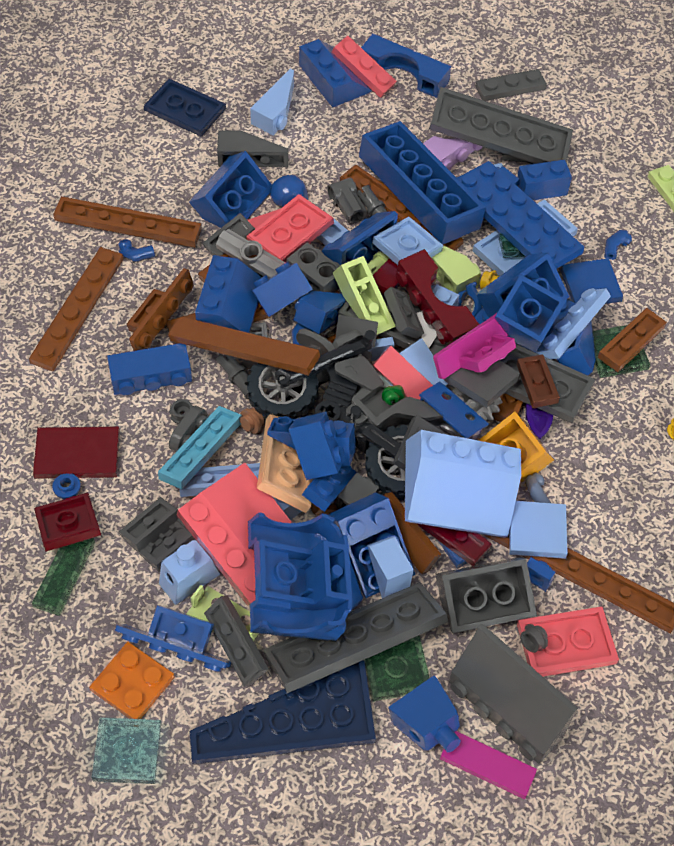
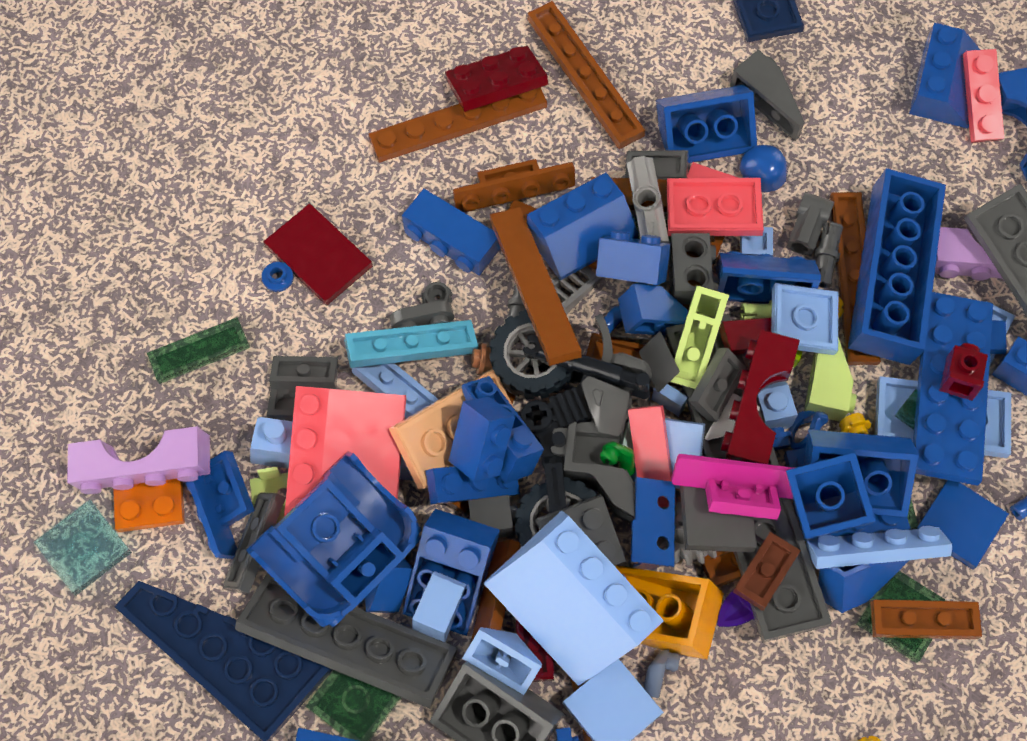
camera: 50 degrees right, 10 degrees up
(67, 521) = (243, 309): dark red tile -> none
(76, 264) = (496, 78): none -> dark red plate
(88, 687) = (179, 455): none -> lavender arch
(133, 253) = (559, 110): blue arm -> none
(273, 107) = (845, 67): light blue slope -> none
(459, 554) = (504, 658): none -> light blue slope
(517, 194) = (964, 371): none -> dark red brick

